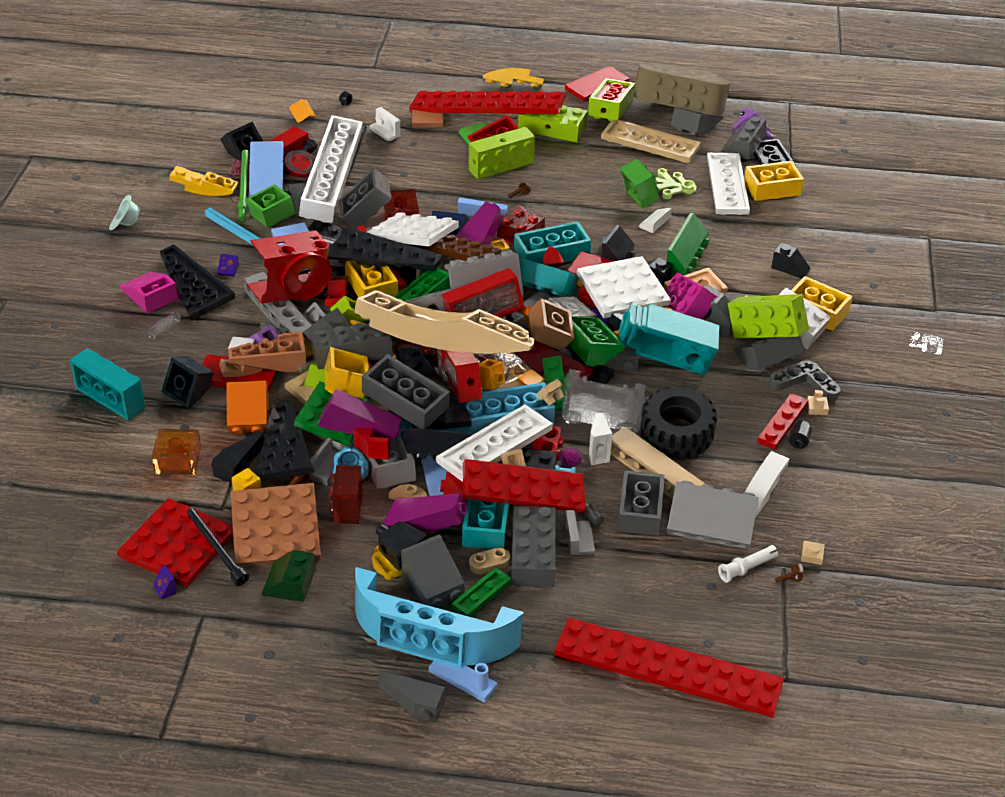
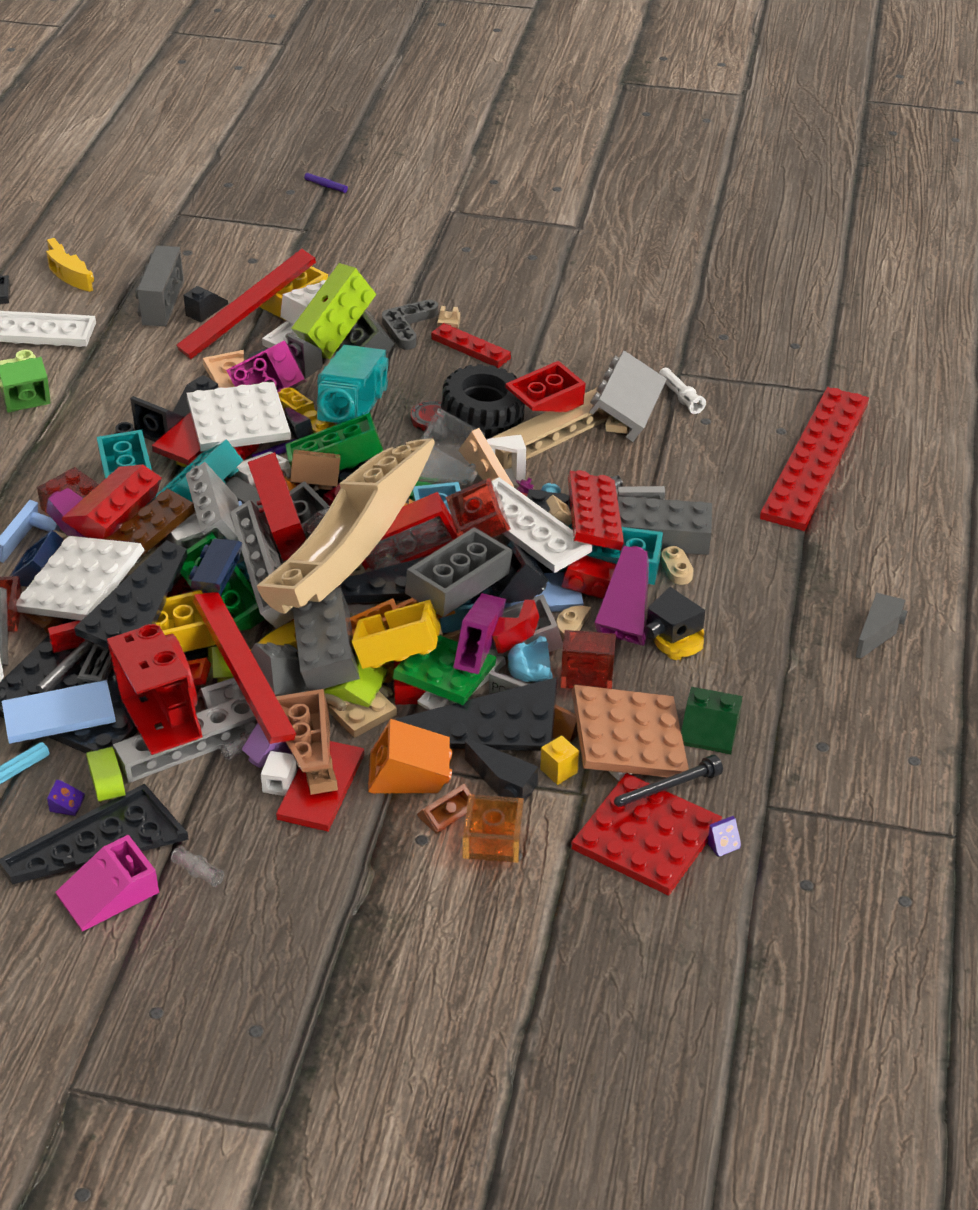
camera: 85 degrees left, 0 degrees up
(107, 384) = (345, 909): teal brick -> none
(186, 380) = (344, 825): black slope -> none
(211, 437) = (446, 809): none -> dark orange slope
(234, 273) = (105, 774): none -> lime beam
(316, 307) = (244, 668): none -> red tile
(410, 280) = (216, 567): none -> dark blue slope
(431, 573) = (720, 596): dark grey slope -> none
(433, 631) = (802, 607): medium azure slope -> none
(468, 680) = (846, 589): light blue piece -> none
(481, 593) = (730, 570): green plate -> none
(488, 405) = (478, 508): none -> clear red brick
(490, 231) = (113, 501): none -> red slope
(549, 391) = (441, 475): tan tile -> none
(552, 258) = (165, 470): red tile -> none
(581, 432) = (478, 451): none -> light nougat wing
(641, 503) = (603, 442): dark grey brick -> none
(656, 220) = (84, 390): white slope -> none
(681, 448) = (549, 389): none -> red slope
(688, 246) = (161, 367): green slope -> none
(767, 478) = (575, 361): white slope -> none
(773, 180) = (47, 288): yellow brick -> none
(780, 276) = (246, 303): none -> red tile
(796, 573) = (692, 363): reddish brown hand -> none
(799, 229) = (160, 286): none -> dark grey brick
(800, 434) = (498, 334): black brick -> none
(812, 552) = (663, 352): tan plate -> none
(817, 185) = (67, 267): none -> yellow slope
(929, 343) = (361, 239): clear plate -> none

